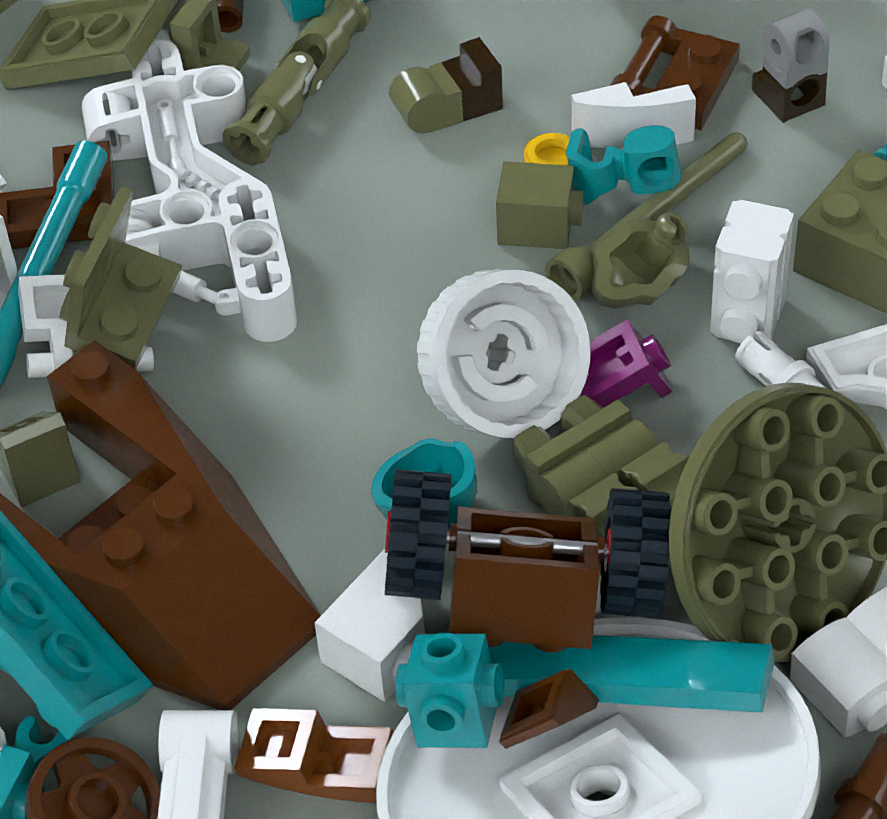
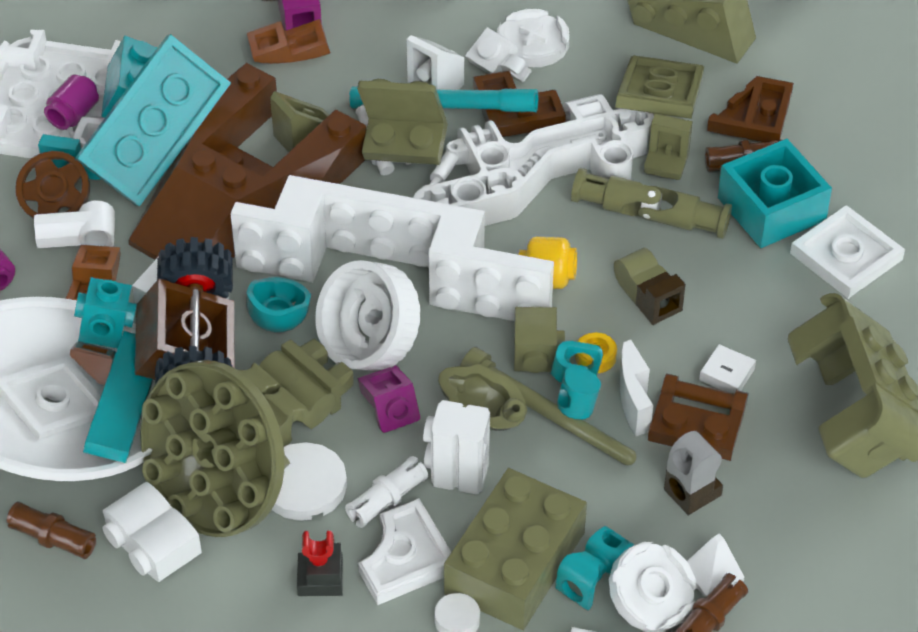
camera: 80 degrees right, 0 degrees up
(376, 260) = (393, 228): none -> white bracket
(398, 178) = (556, 250): none -> yellow head
(600, 41) = (727, 370): none -> white tile

